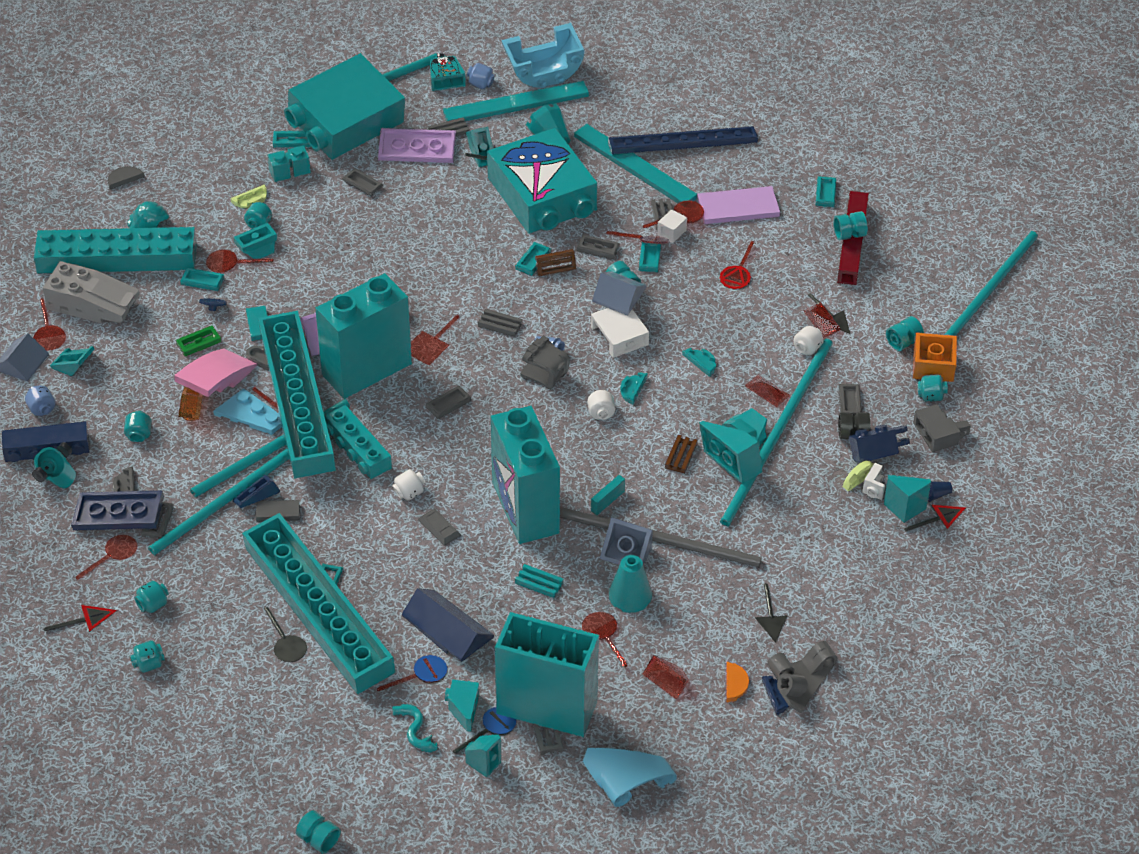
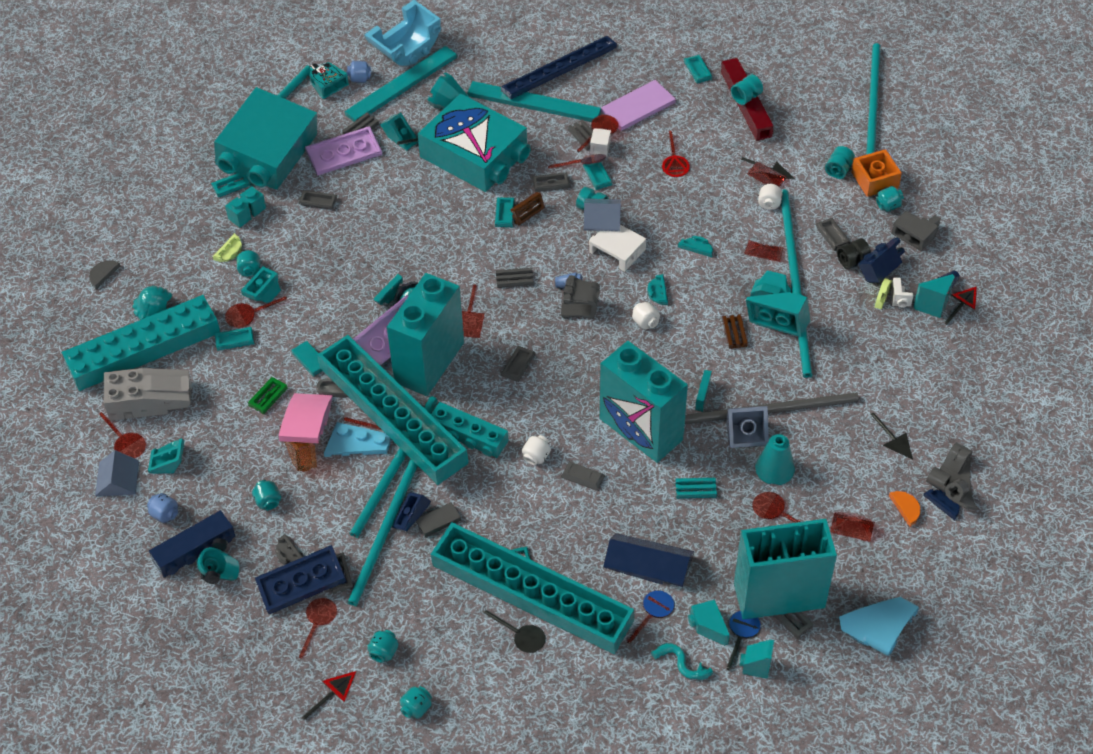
camera: 25 degrees left, 5 degrees up
(213, 303) = (259, 356): dark blue piece -> none

